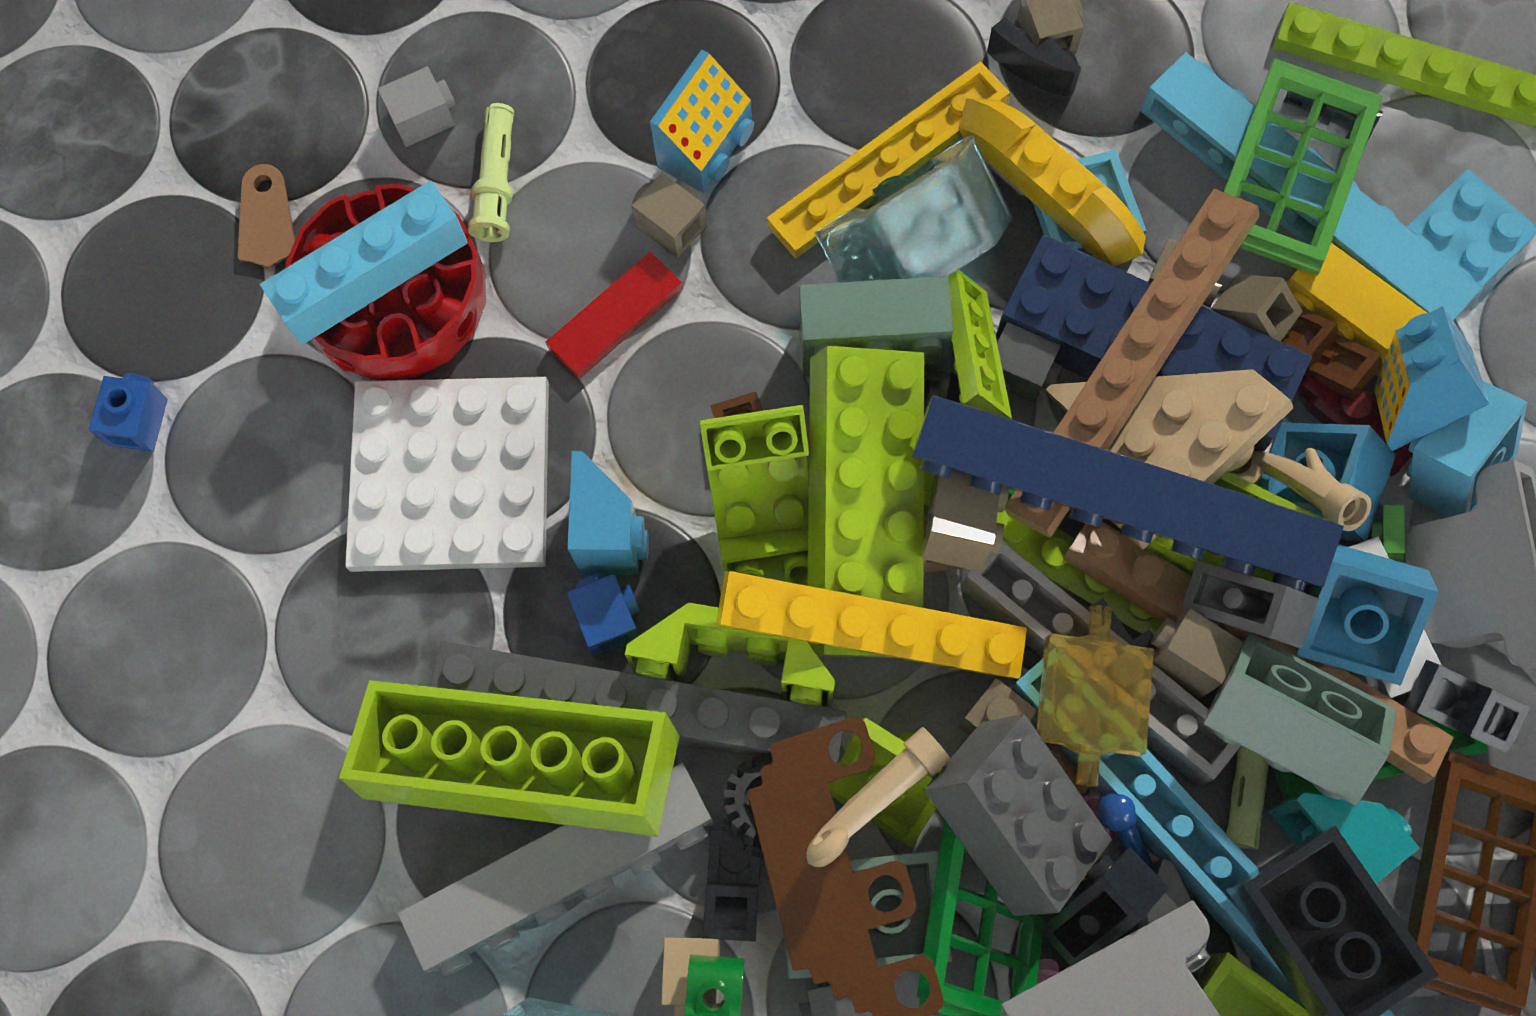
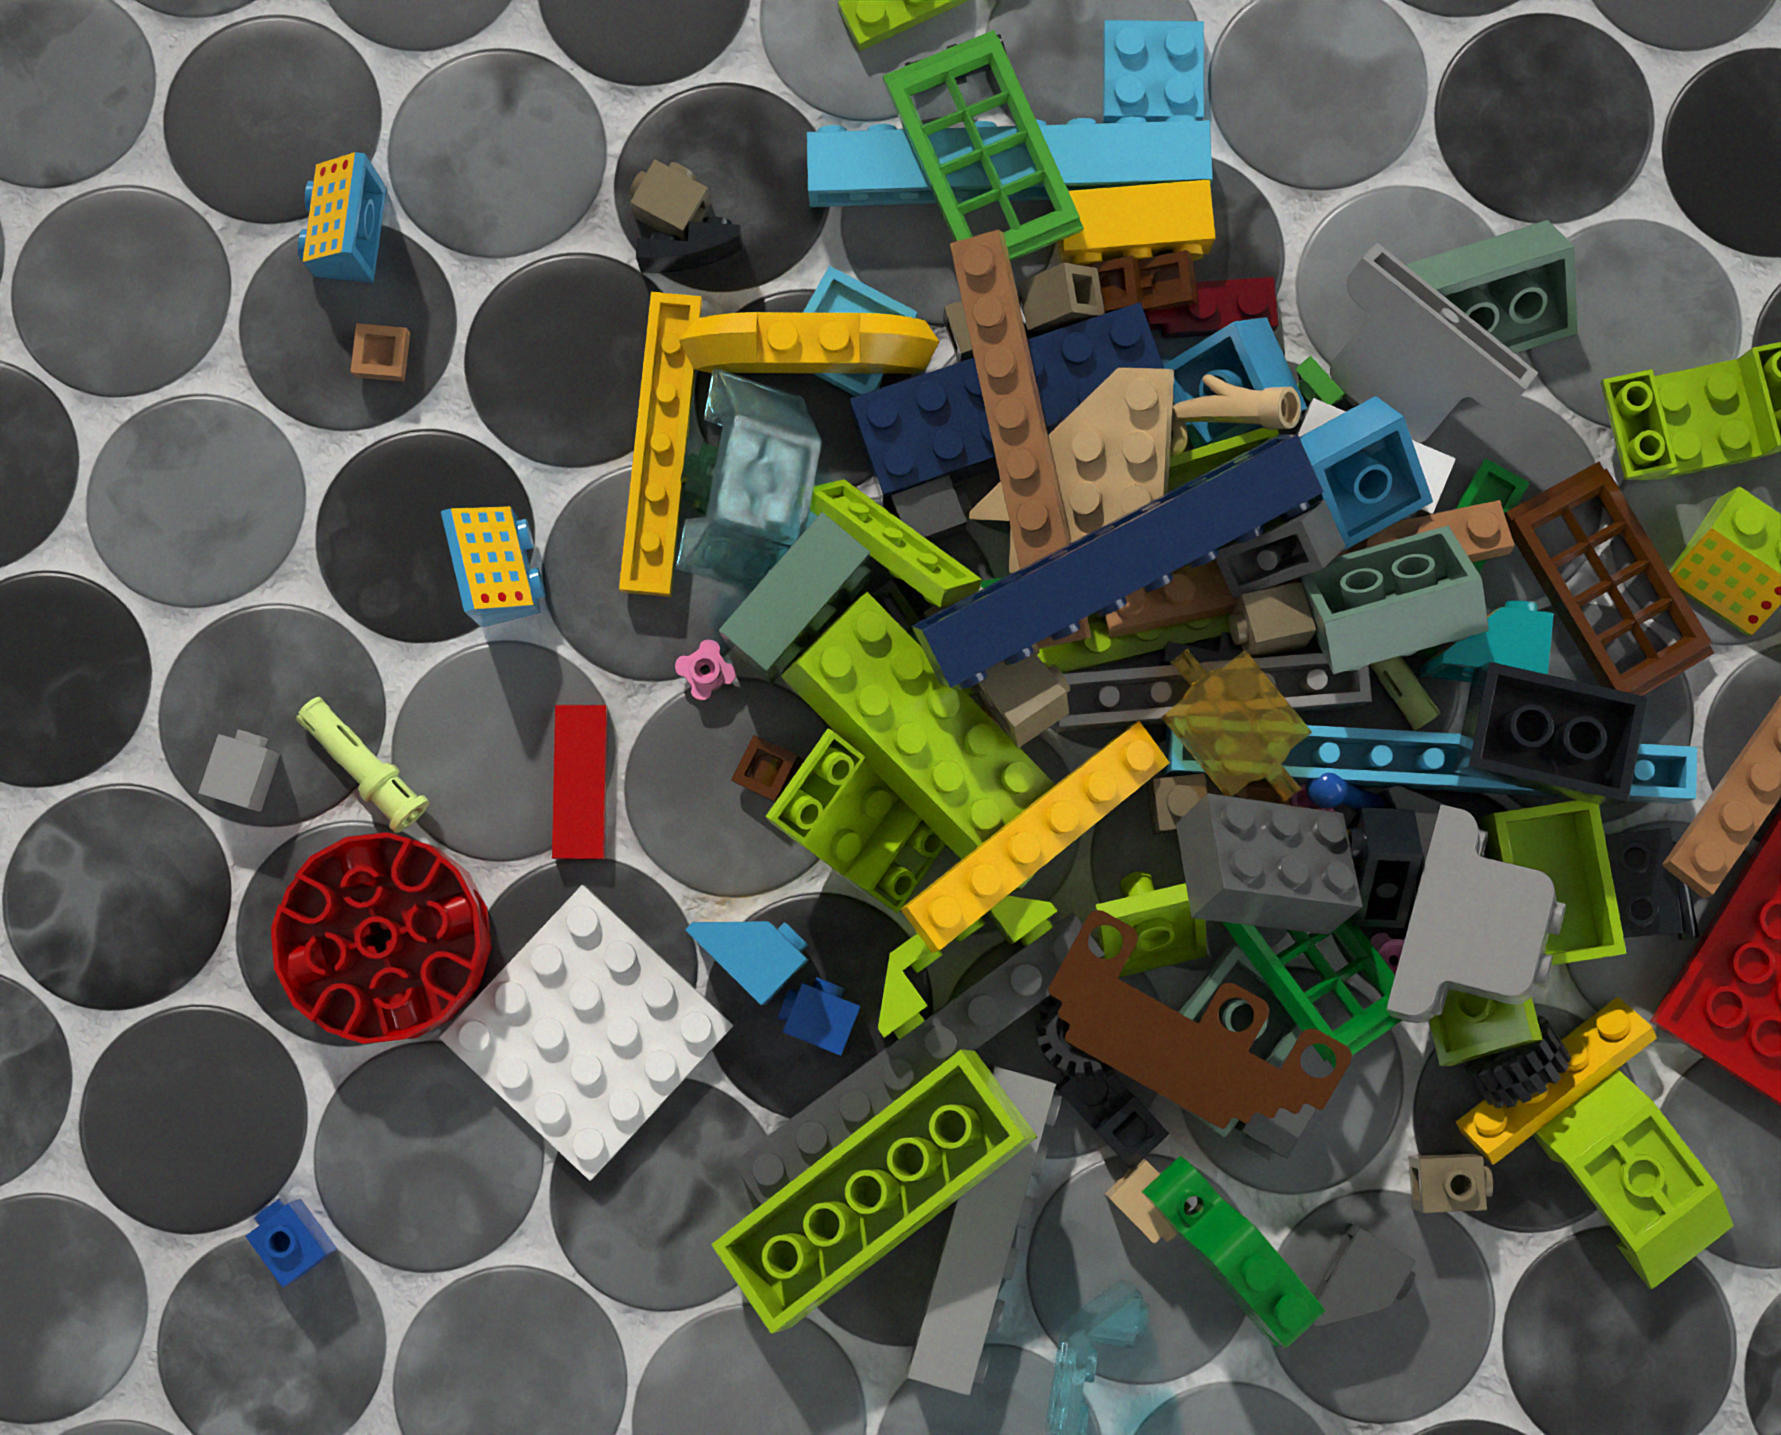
camera: 50 degrees left, 10 degrees up
(265, 218) = (217, 984): medium nougat piece -> none
(365, 262) = (366, 947): medium azure brick -> none
(669, 213) = (537, 659): dark tan brick -> none
(771, 335) = (719, 674): none -> bright pink plate
(920, 757) = (1160, 967): tan plant -> none
(1427, 379) = (1244, 246): dark azure slope -> none
(1453, 456) = (1312, 268): medium azure brick -> none
(1467, 706) = (1488, 467): black slope -> none

